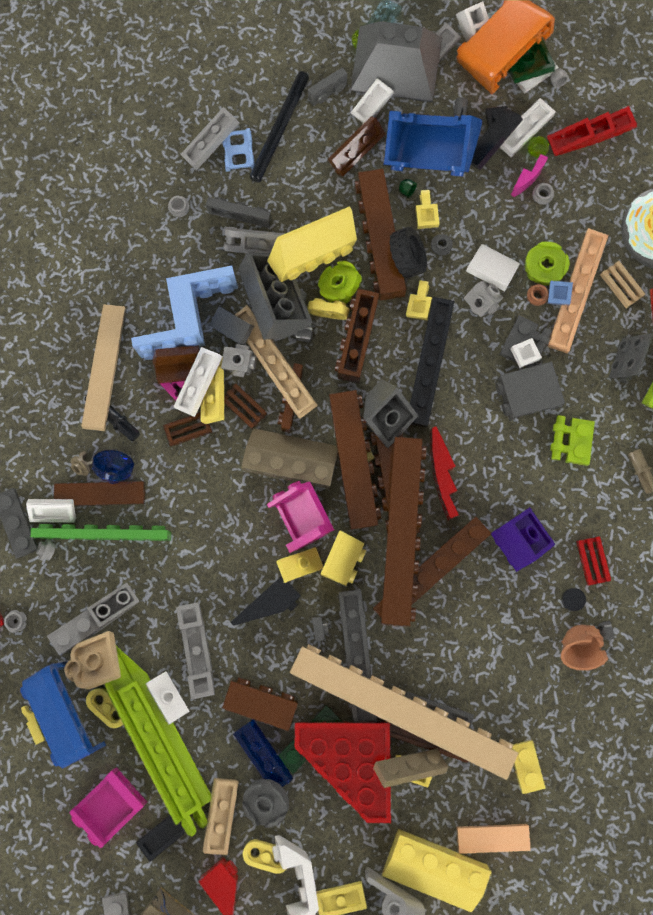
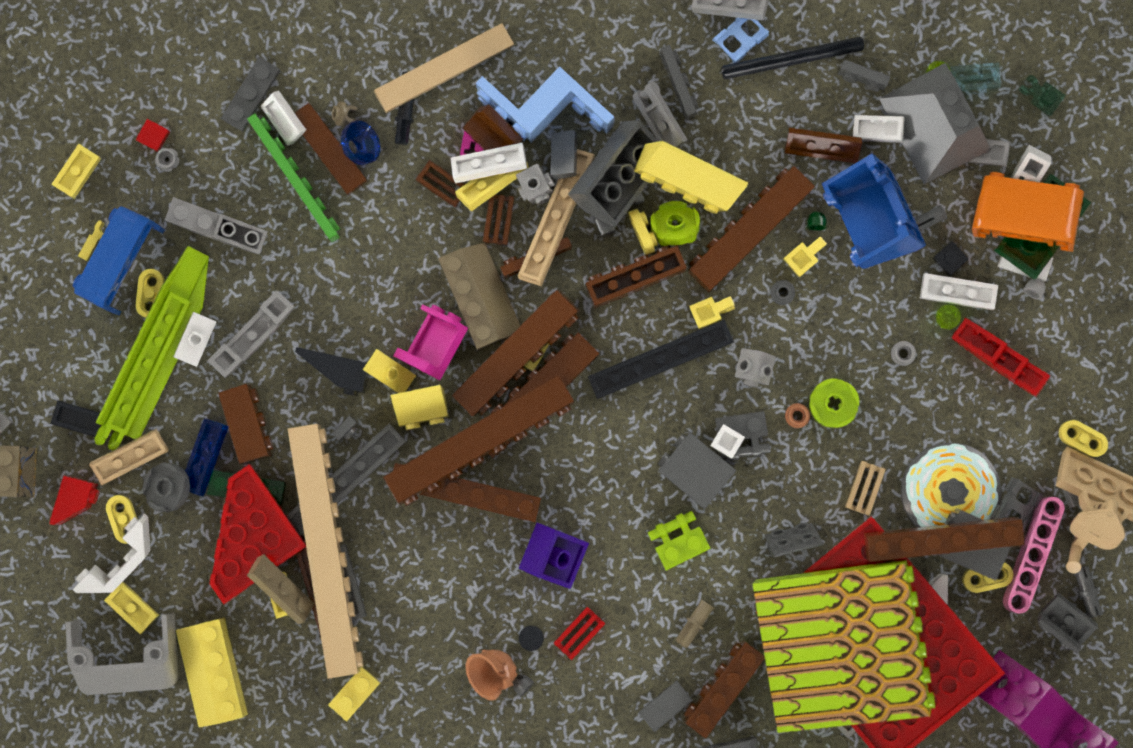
camera: 55 degrees right, 5 degrees up
(45, 550) = (246, 139): light grey plate -> none
(93, 662) = (180, 254): tan plate -> none
(107, 808) = (69, 355): dark pink panel -> none
(178, 206) = (645, 22): light grey plate -> none
(388, 412) = (577, 353): dark grey slope -> none
(408, 252) = (739, 259): black tyre -> none
(441, 465) = (569, 436): red slope -> none
(492, 267) = (792, 355): white slope -> none
(493, 838) = (272, 704): light nougat tile -> none
(495, 137) = (923, 269): black tile -> none
(528, 177) = (904, 327): dark pink slope -> none
(560, 293) = (810, 434): medium blue plate -> none
(582, 279) = (829, 450): light nougat tile -> none

